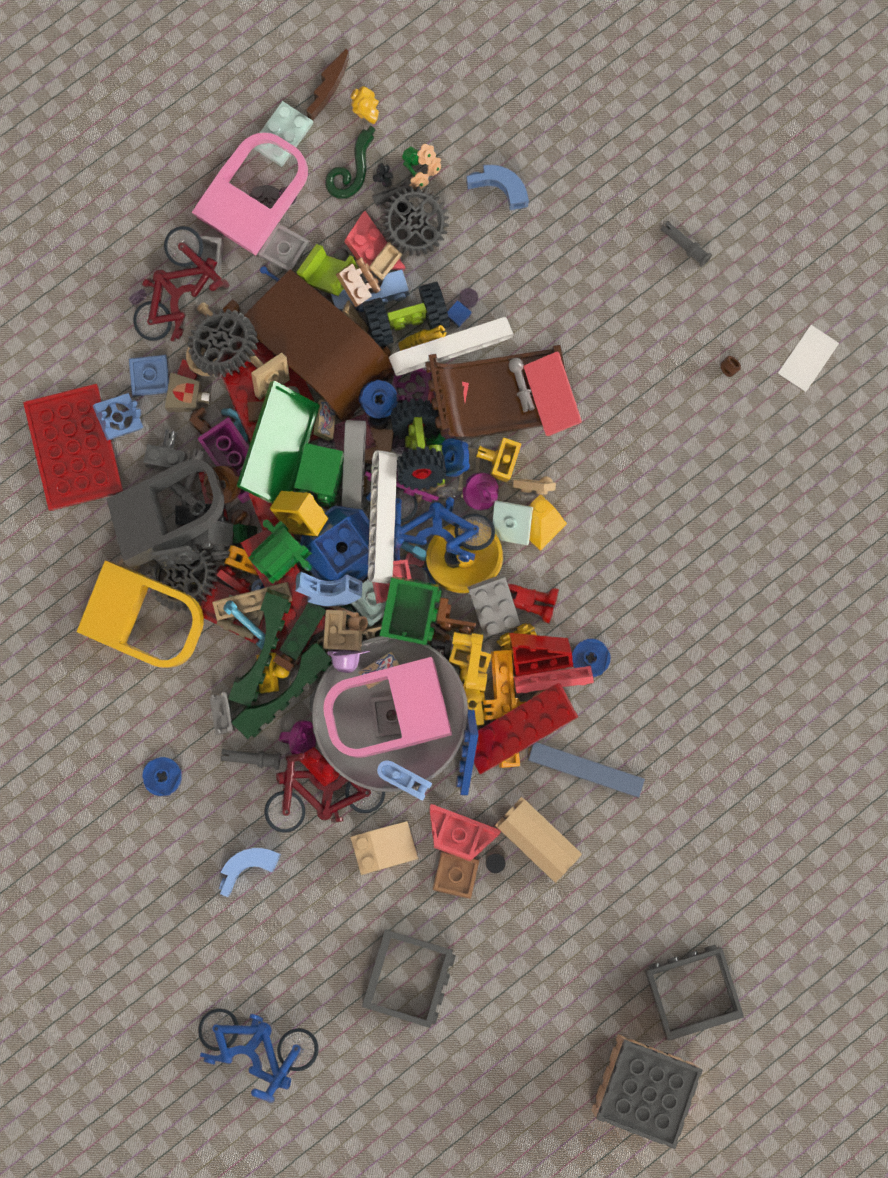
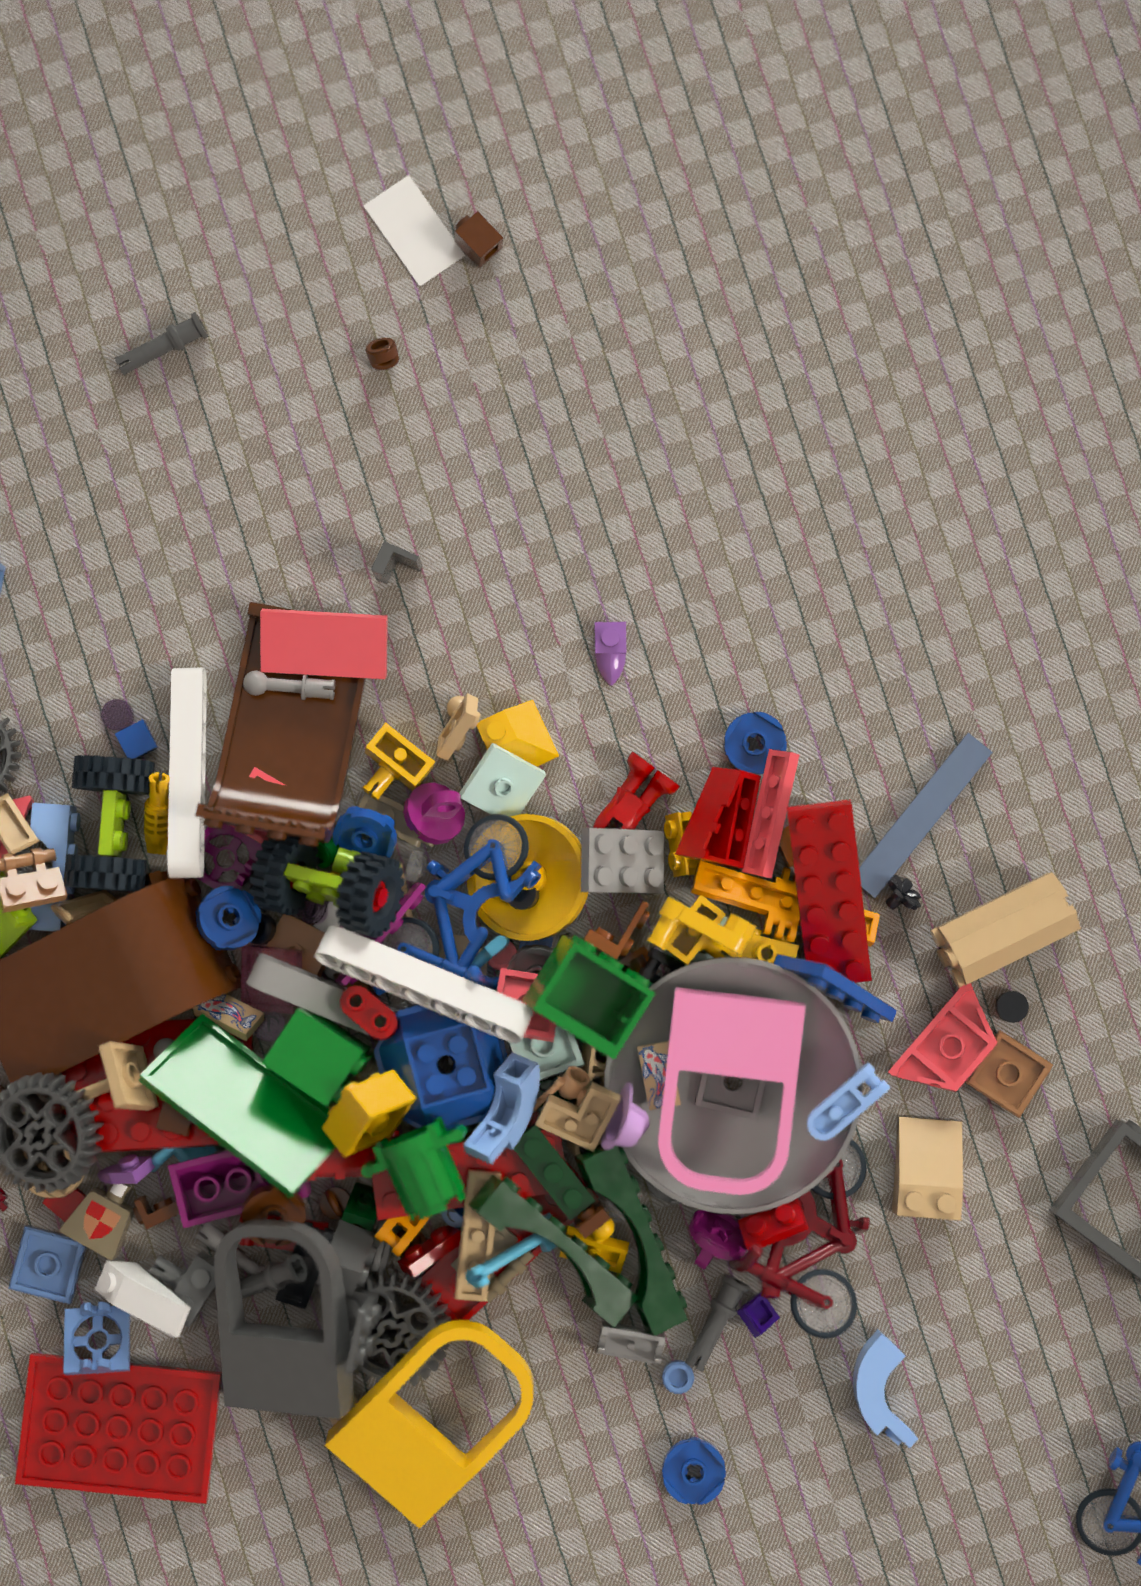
camera: 70 degrees left, 5 degrees up
(151, 430) = (142, 1296): none -> white slope
(212, 748) = (678, 1377): none -> medium blue tile
(218, 397) = (127, 1171): none -> medium lavender plate
(264, 780) = (758, 1314): none -> dark purple tile
(354, 492) = (368, 1012): none -> red plate
(536, 775) = (902, 894): none -> black plant
(612, 556) = (610, 649): none -> medium lavender plate
(613, 411) = (388, 558): none -> dark grey panel
(817, 394) = (477, 238): none -> reddish brown brick

